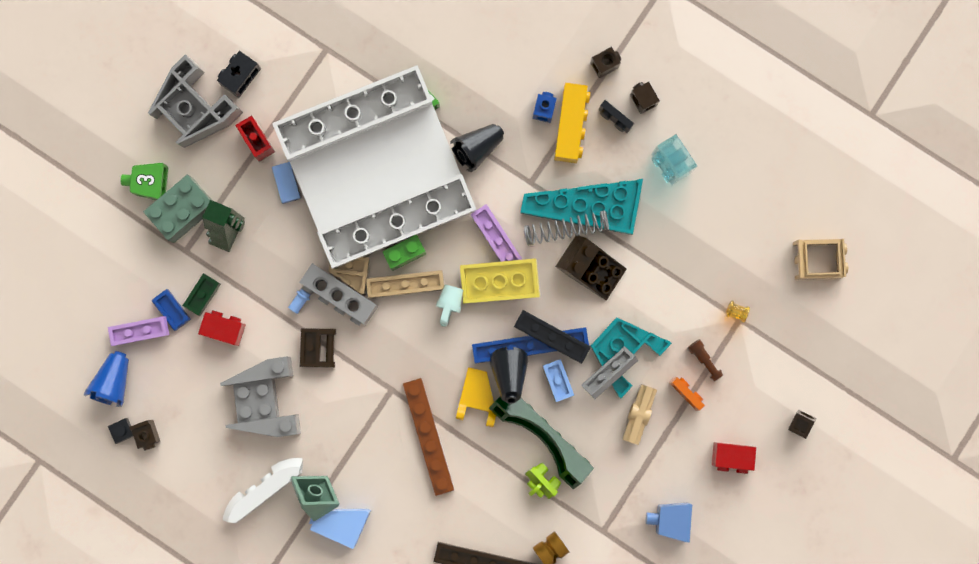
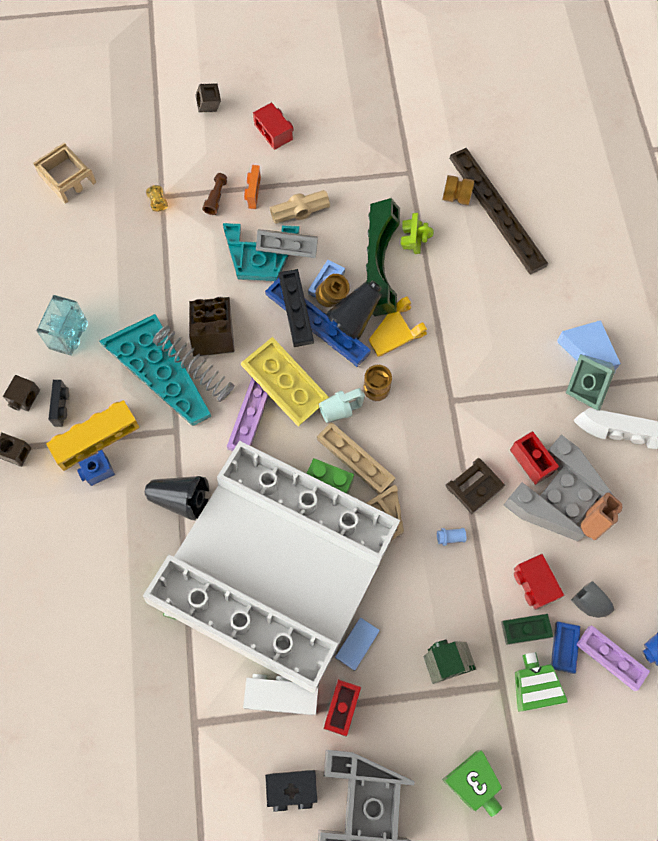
camera: 130 degrees left, 15 degrees down
(164, 268) = (537, 685): none -> bright green torso
(178, 209) = (471, 722): sand green brick -> none
(181, 353) = (593, 601): none -> dark grey brick
(220, 404) = (601, 516): none -> nougat brick
(299, 402) = (534, 457): none -> red brick
(301, 99) = (278, 696): none -> white brick
(315, 275) = (416, 540): light grey brick -> none
(428, 436) = (459, 343): dark orange plate -> none
(444, 344) = (377, 382): none -> pearl gold wheel
(540, 371) = (332, 290): none -> pearl gold wheel
(672, 520) = (357, 131): medium blue torso -> none

